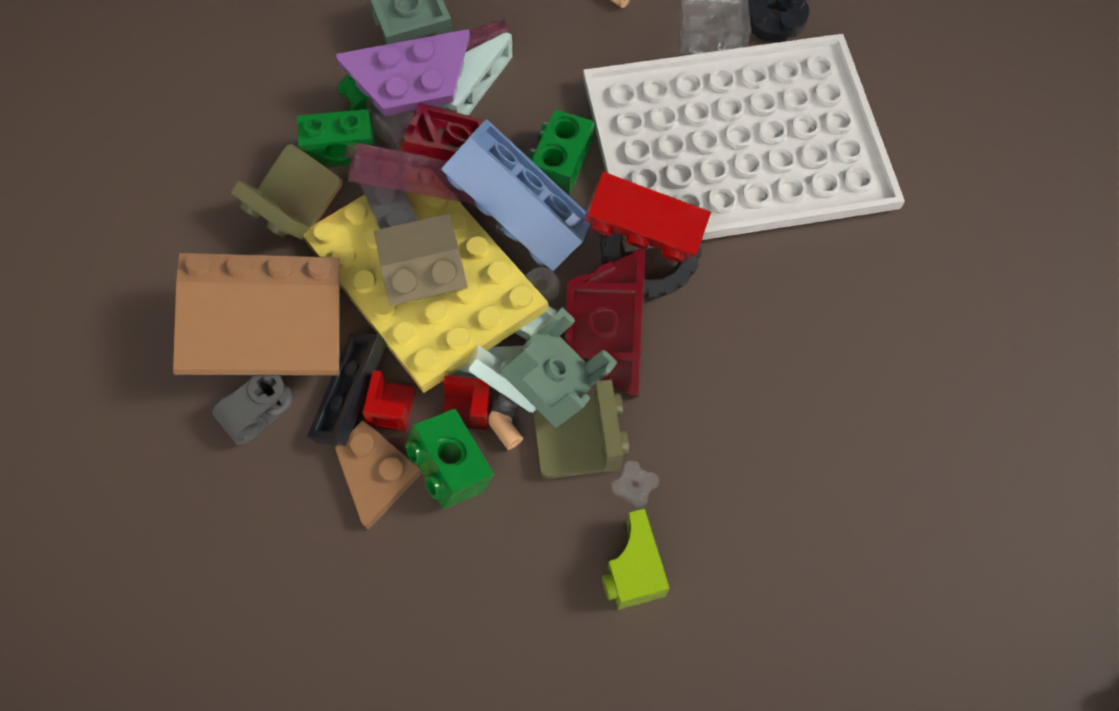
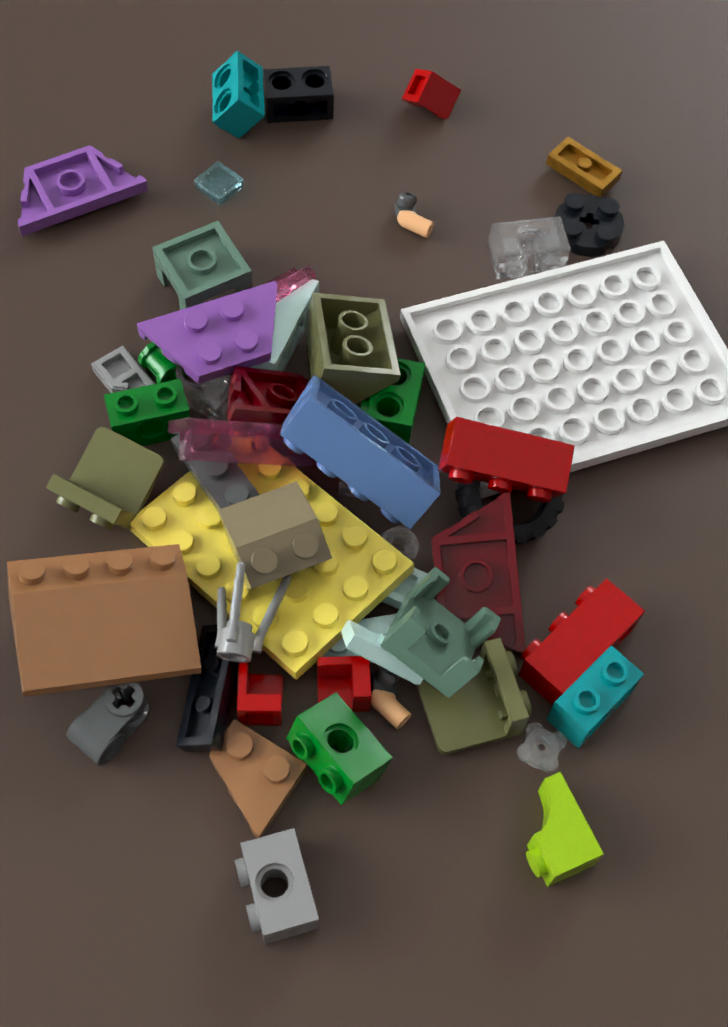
camera: 10 degrees left, 5 degrees down
(321, 96) = (120, 371): none -> light grey tile
(372, 347) = (235, 637): none -> light grey plant
(385, 594) = (277, 857): none -> light grey brick
(529, 96) = (351, 344): none -> olive slope
(689, 393) = (579, 639): none -> red brick
(692, 445) = (594, 696): none -> teal brick

